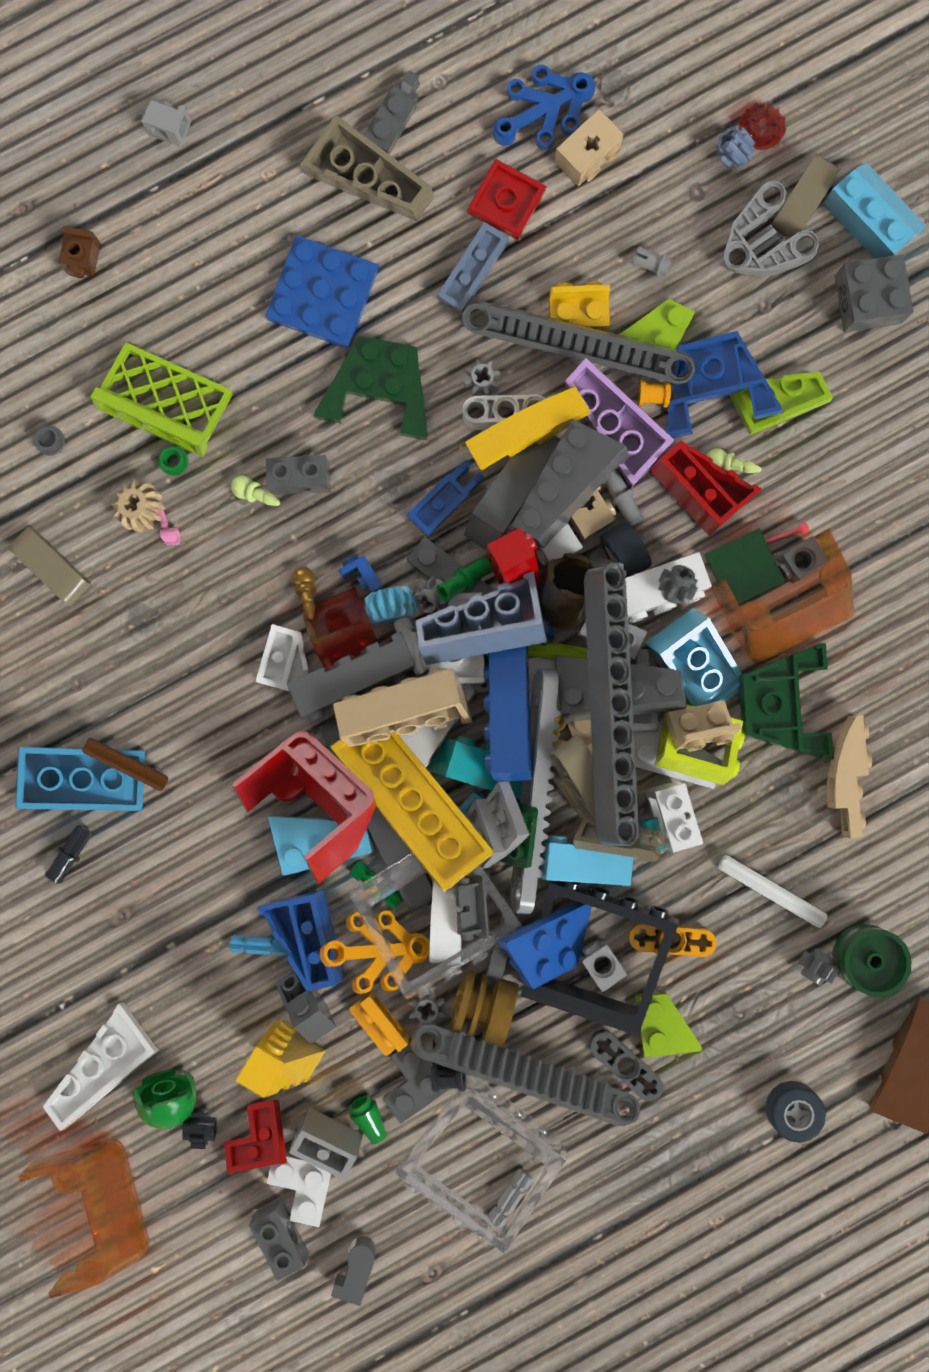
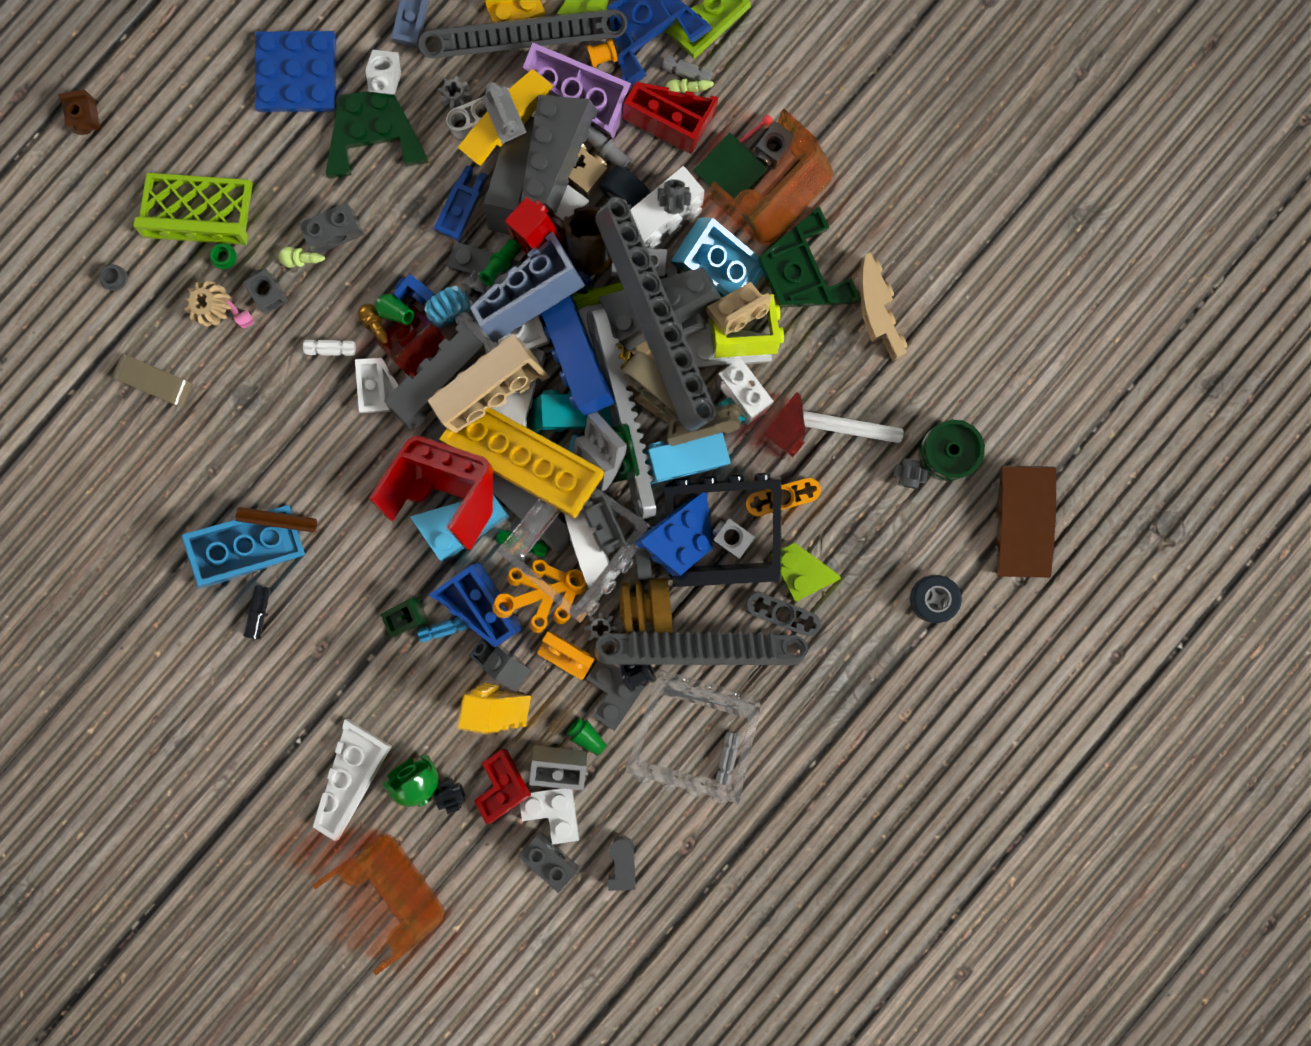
camera: 15 degrees left, 0 degrees up
(213, 524) = (273, 299): none -> dark grey brick
(222, 918) = (404, 617): none -> dark green slope
(249, 599) = (329, 347): none -> white axle
(332, 585) = (393, 309): none -> green cone
(415, 328) = (383, 72): none -> white brick
(527, 425) = (503, 112): none -> light grey hinge
(704, 871) = (786, 430): none -> clear red slope
(737, 443) = (685, 69): none -> light grey axle

